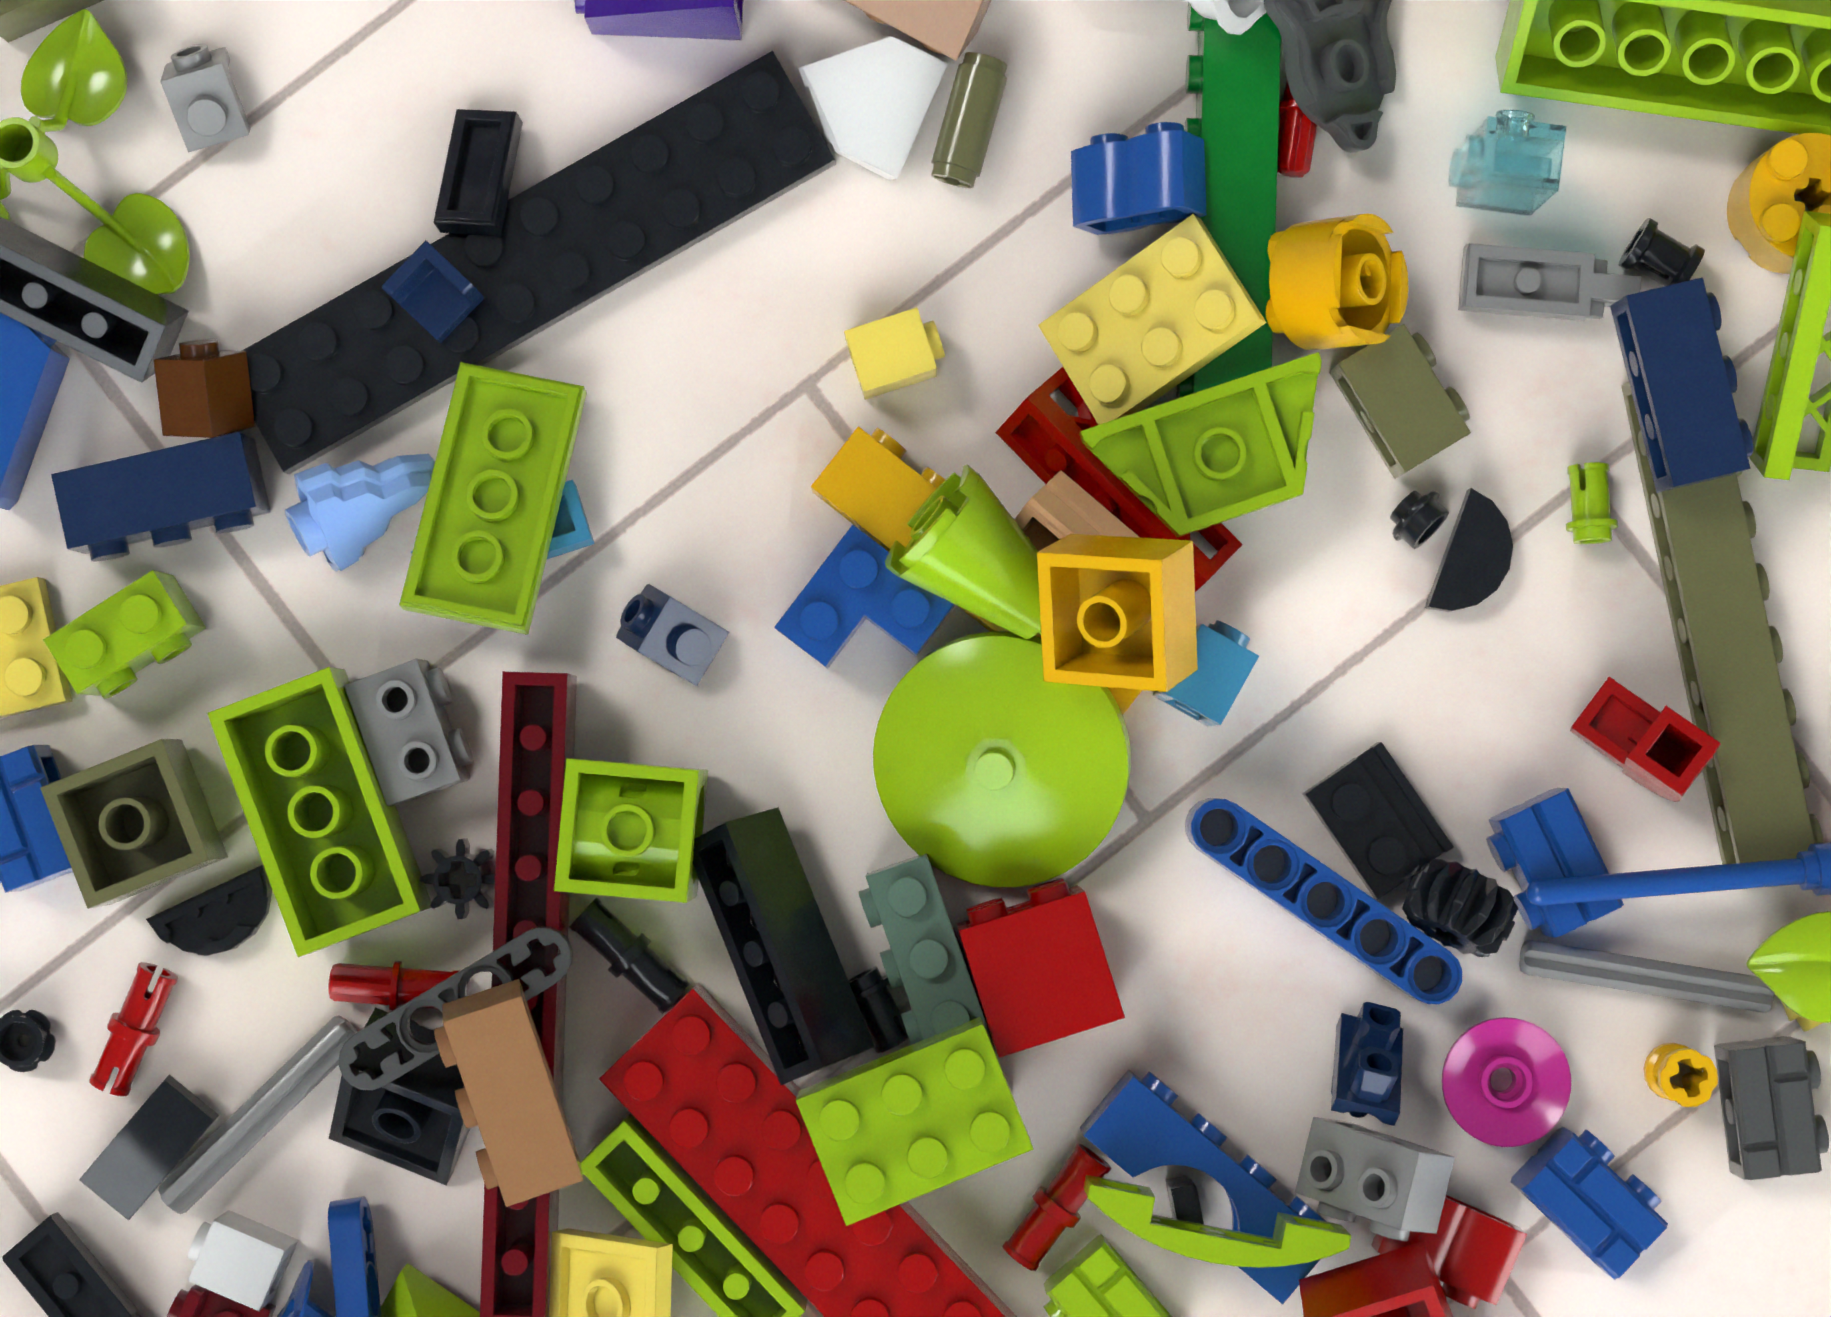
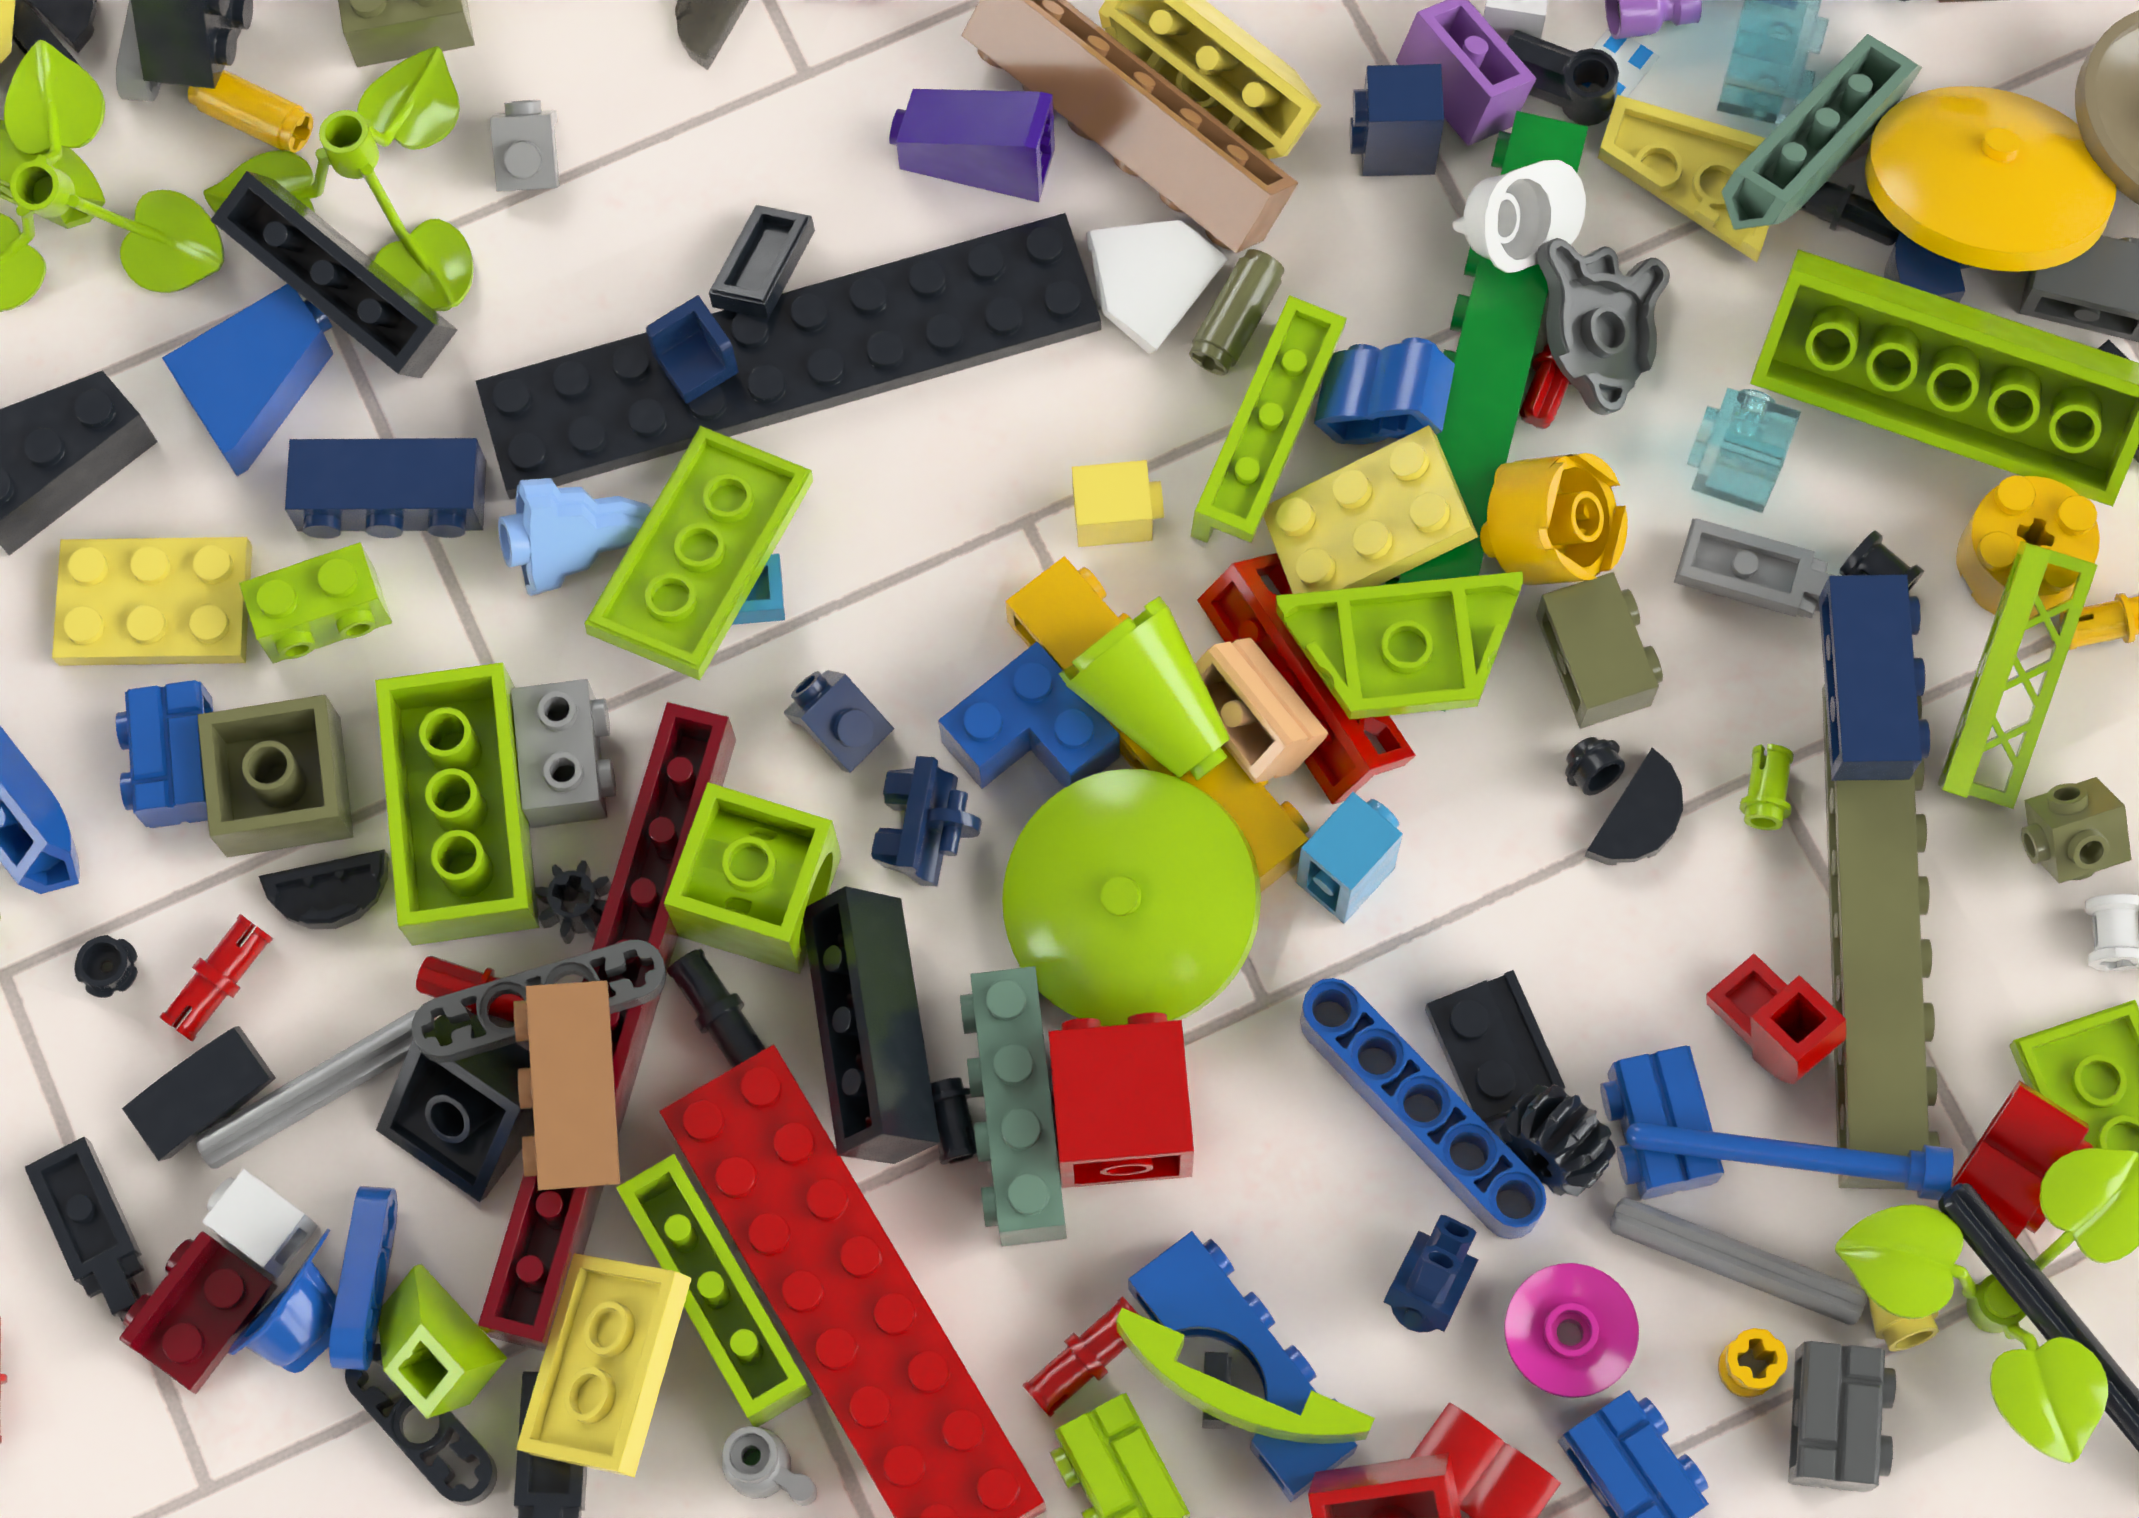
camera: 15 degrees right, 15 degrees down
(204, 391) = (453, 396): reddish brown brick -> none
(789, 721) = (931, 824): none -> dark blue hips
(913, 1121) = (961, 1203): lime brick -> none
(1029, 236) = (1268, 421): none -> lime fence
(1118, 611) = (1271, 753): yellow brick -> none
(1374, 1177) = (1415, 1384): light grey brick -> none

